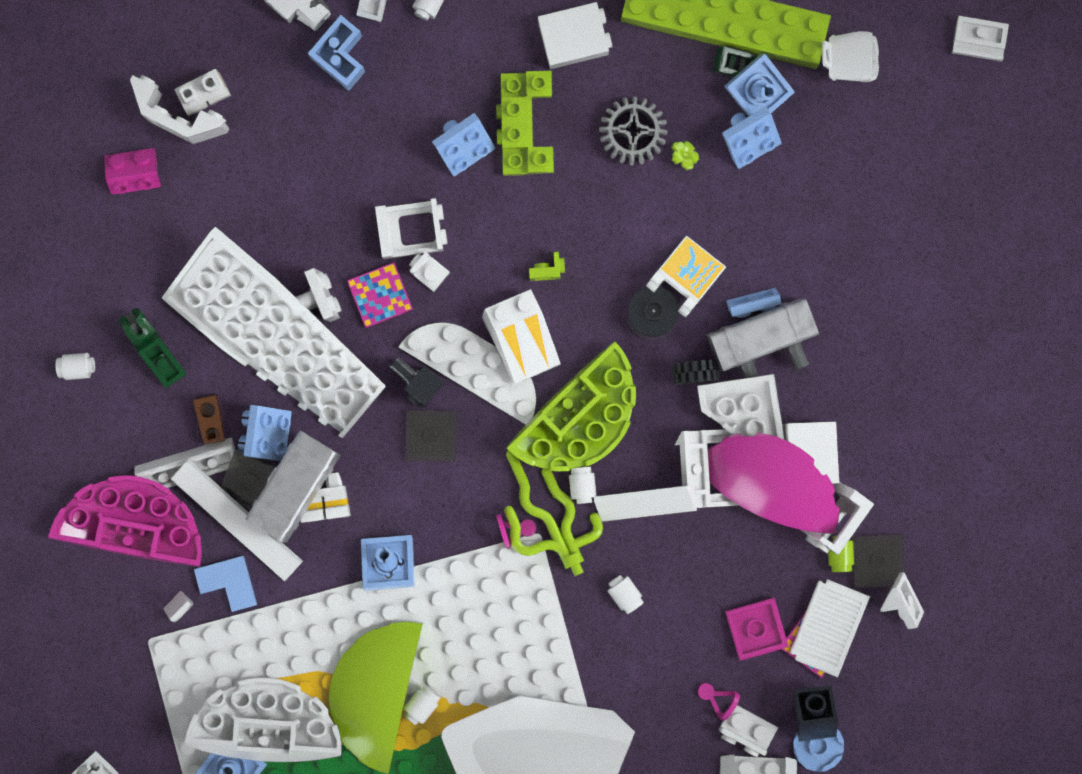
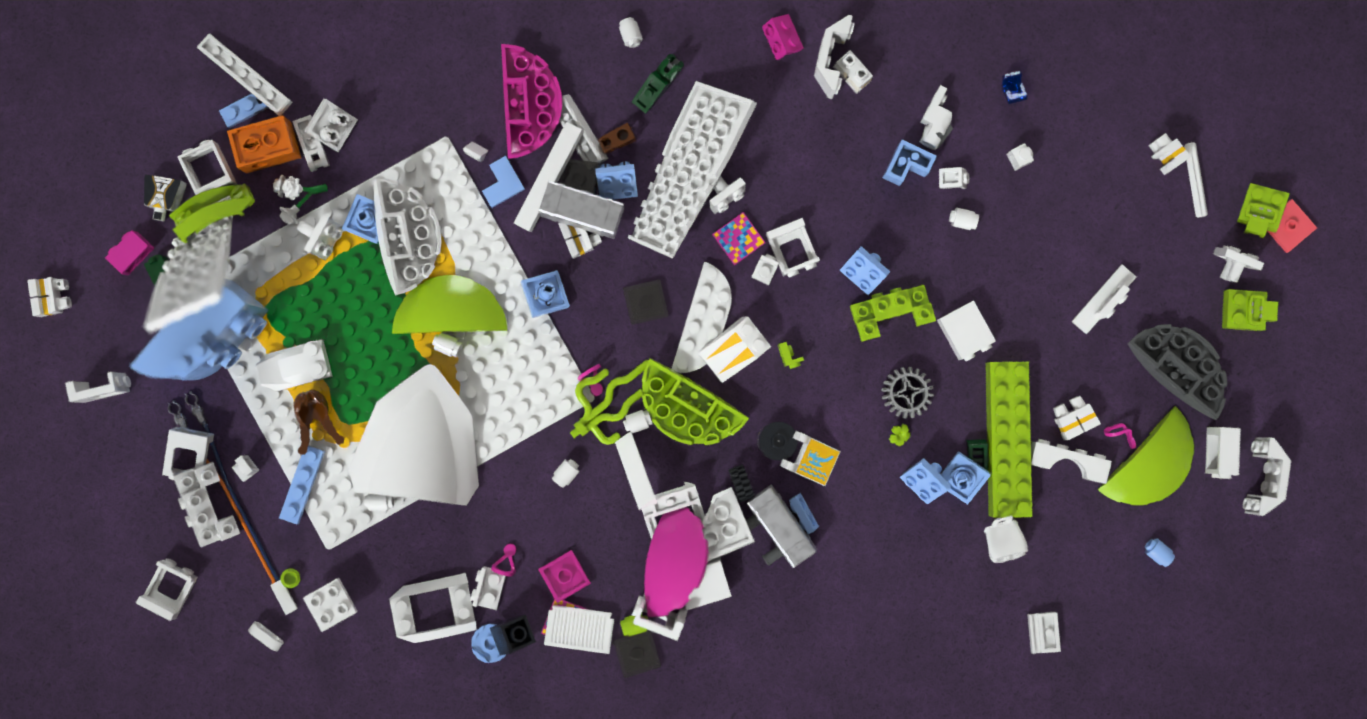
camera: 75 degrees right, 0 degrees up
(420, 385) = (679, 283): black brick -> none
(904, 599) = (612, 680): white slope -> none

